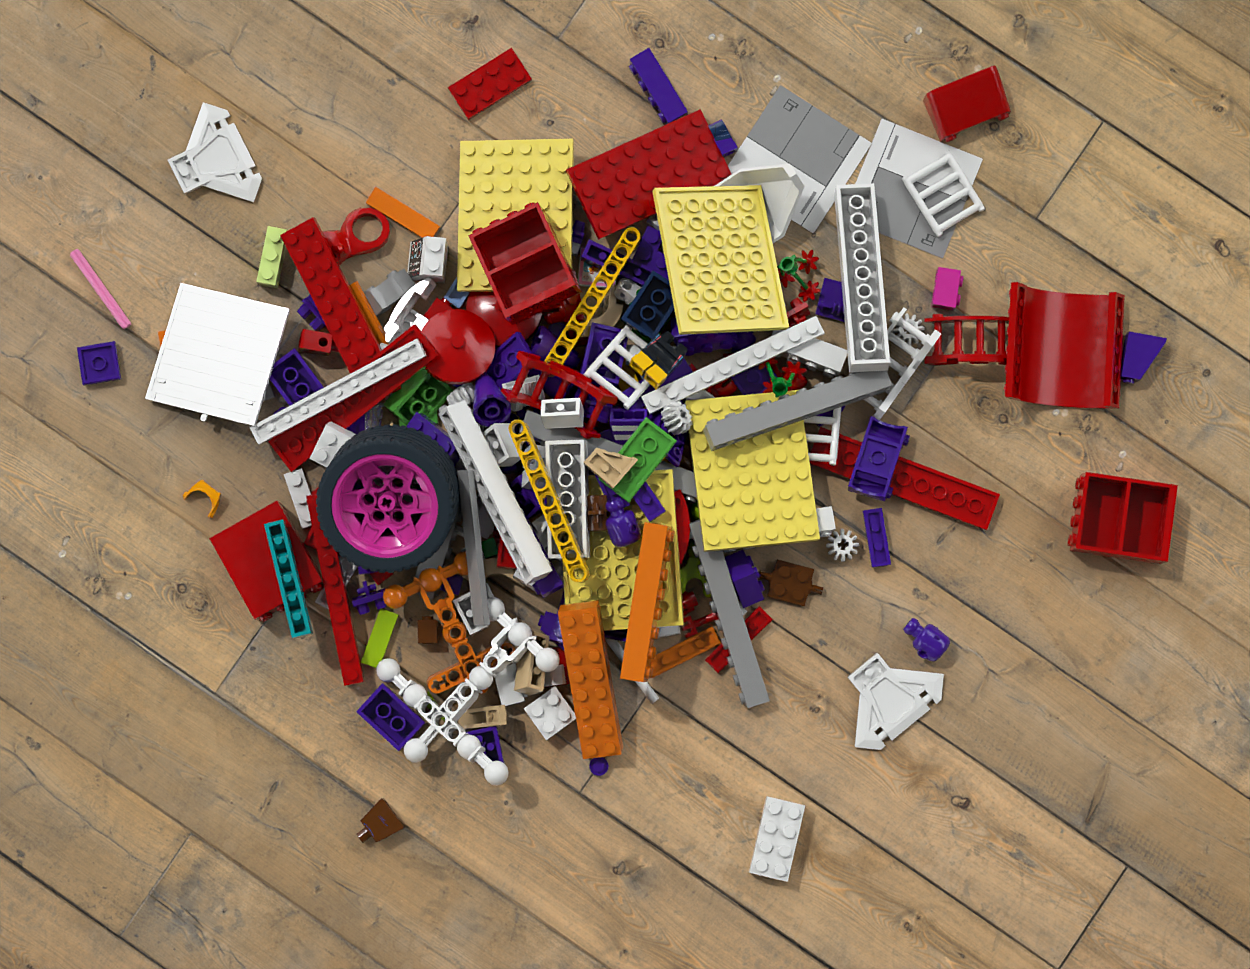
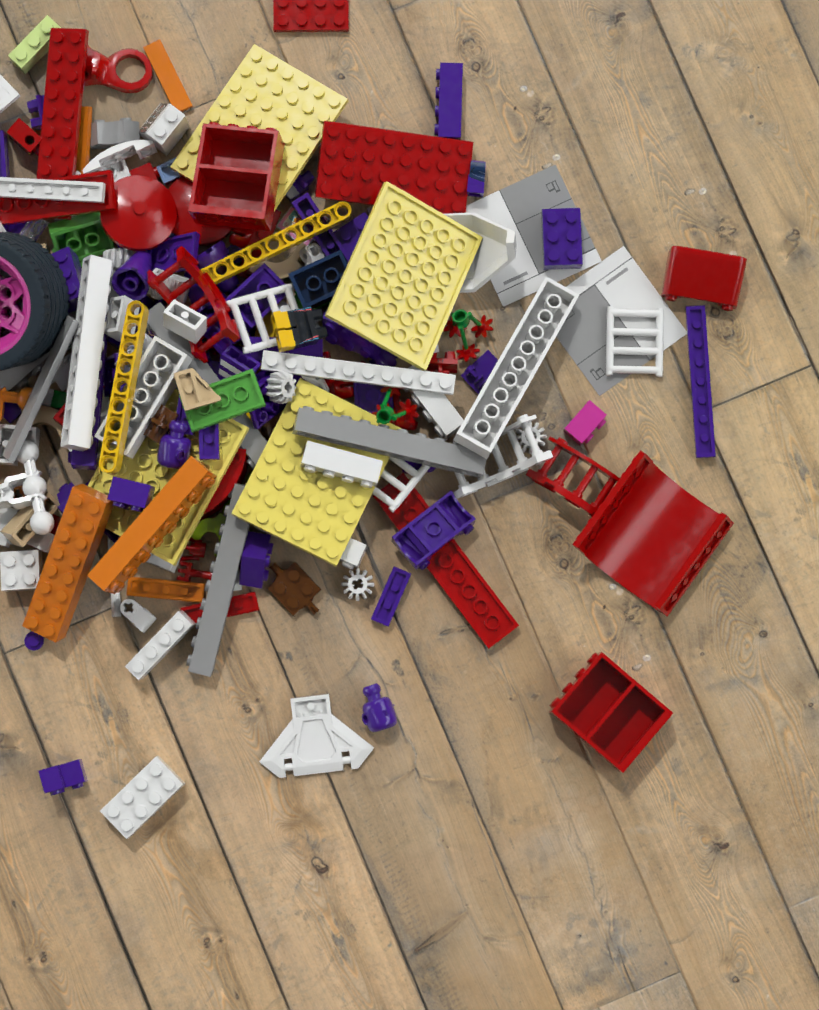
camera: 35 degrees right, 0 degrees up
(612, 586) = (131, 494): none -> dark purple brick
(675, 688) = (139, 617): none -> white piece
(699, 863) = (62, 776): none -> dark purple brick
(709, 701) = (160, 644): none -> white brick
(769, 450) = (341, 464): none -> white brick
(827, 145) = (561, 238): none -> dark purple brick
(1020, 193) = (700, 381): none -> dark purple plate
(1138, 355) = (713, 582): dark purple slope -> none

